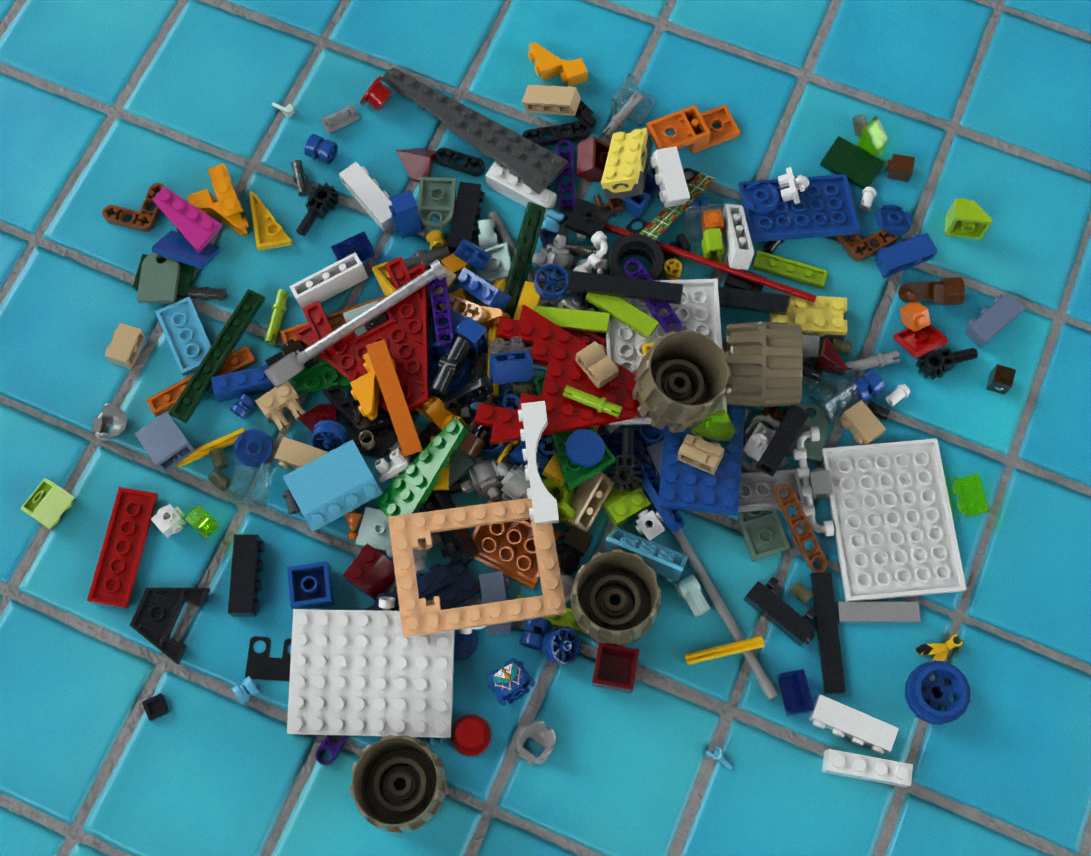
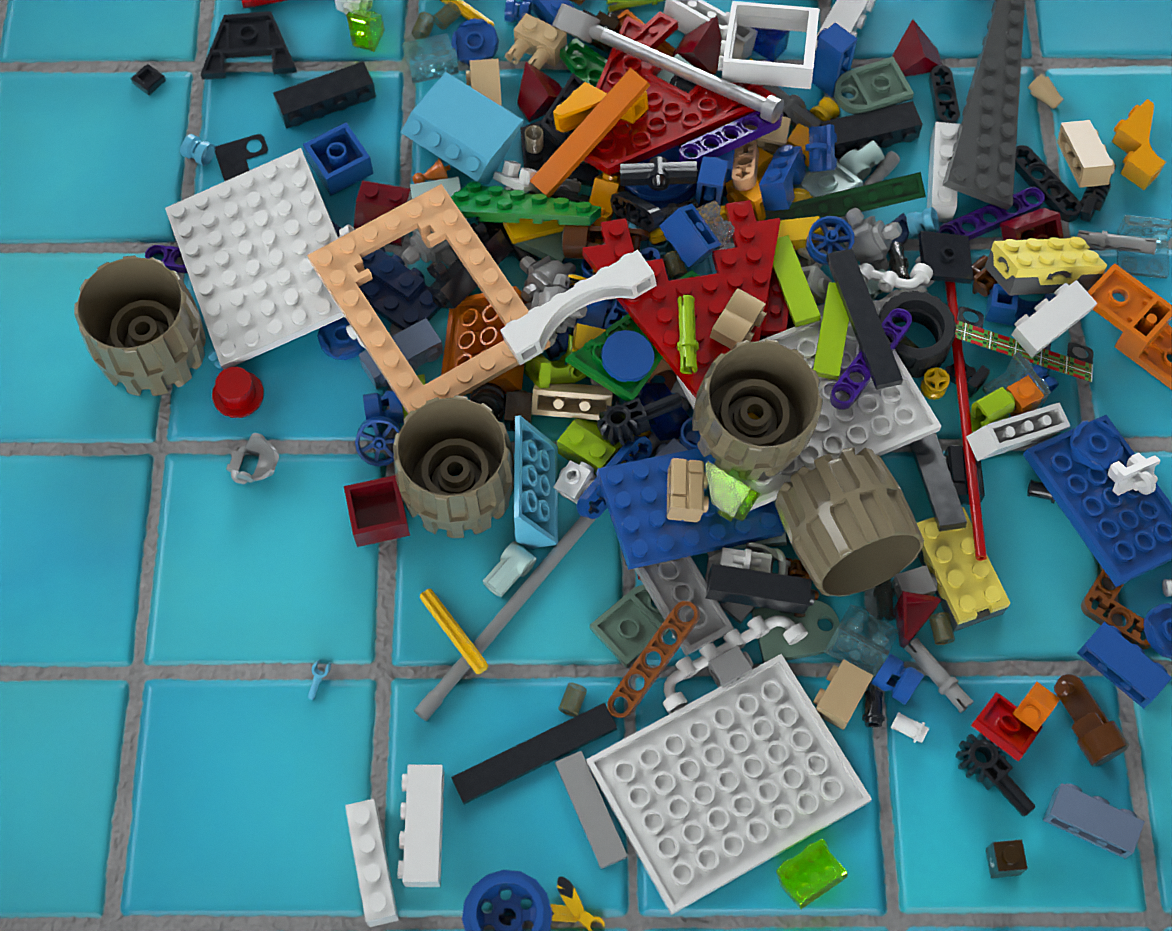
camera: 65 degrees right, 5 degrees down
(330, 435) = (521, 99): blue wheel -> none
(345, 294) = (702, 46): none -> dark red slope
(357, 232) = (768, 17): none -> white window
(487, 99) = (1045, 91): none -> tan cone
(510, 682) = (311, 403): blue brick -> none
(780, 613) = (531, 682): black brick -> none
(790, 269) = (1018, 527): lime tile -> none
(795, 693) = (436, 739): clear blue panel -> none

